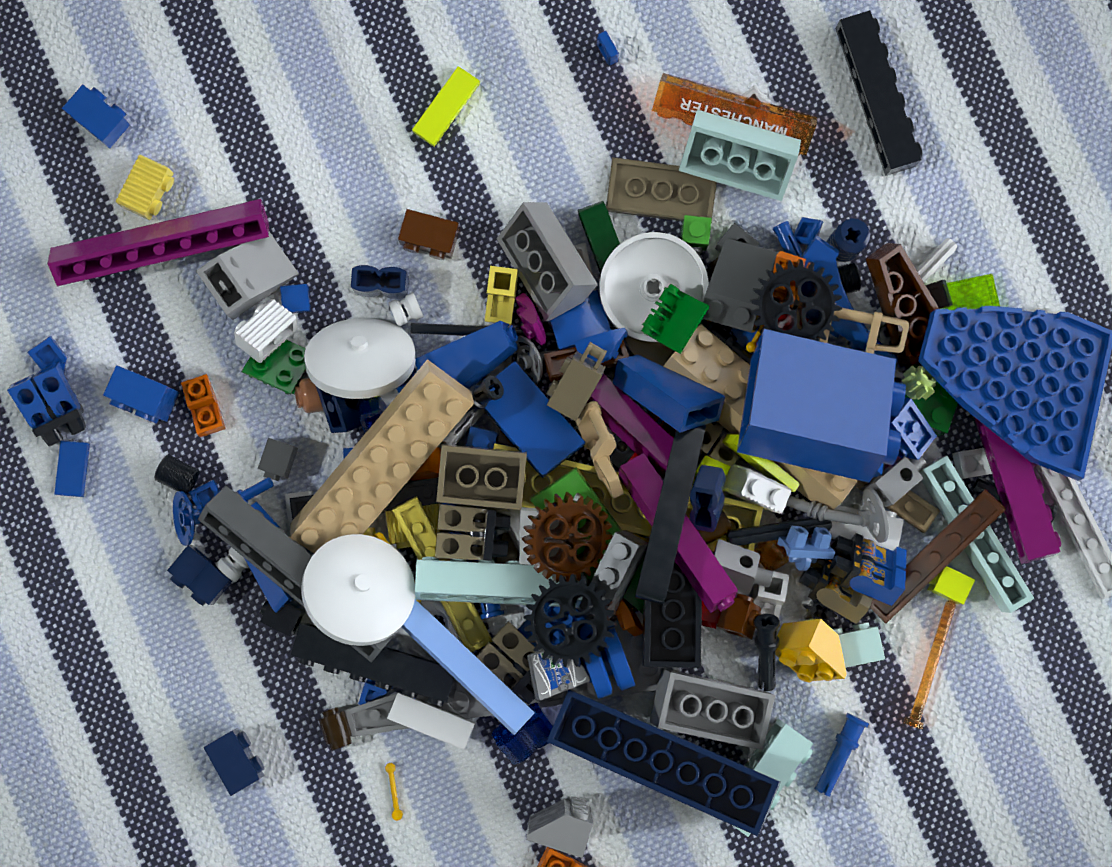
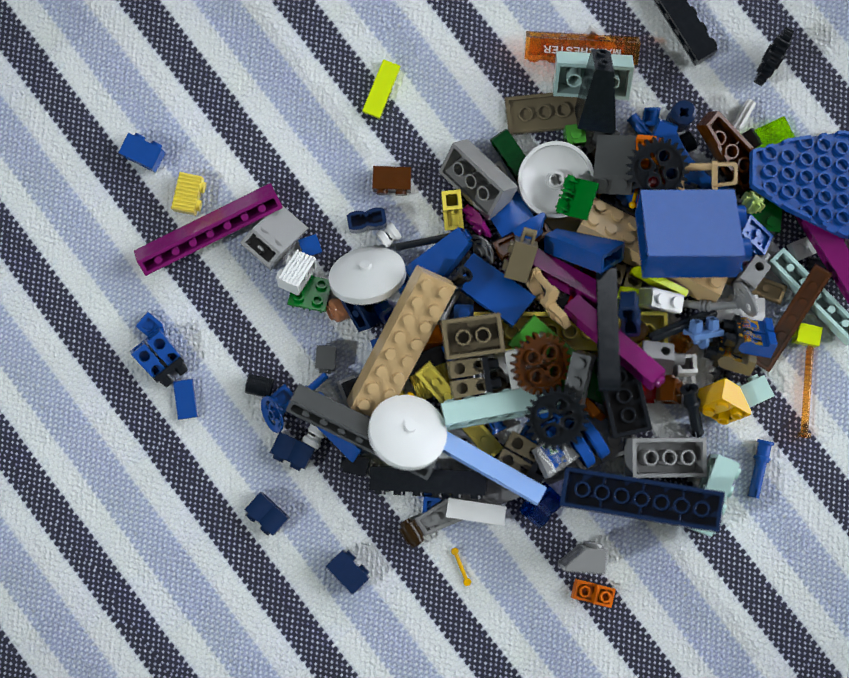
camera: 10 degrees left, 0 degrees up
(137, 392) = (222, 335): blue brick -> none
(142, 654) = (266, 514): none -> dark blue brick
(203, 405) = (265, 334): orange slope -> none
(607, 48) = (483, 23): blue tile -> none
(735, 189) = (597, 94): none -> black slope
(996, 187) = (773, 56): none -> black gear

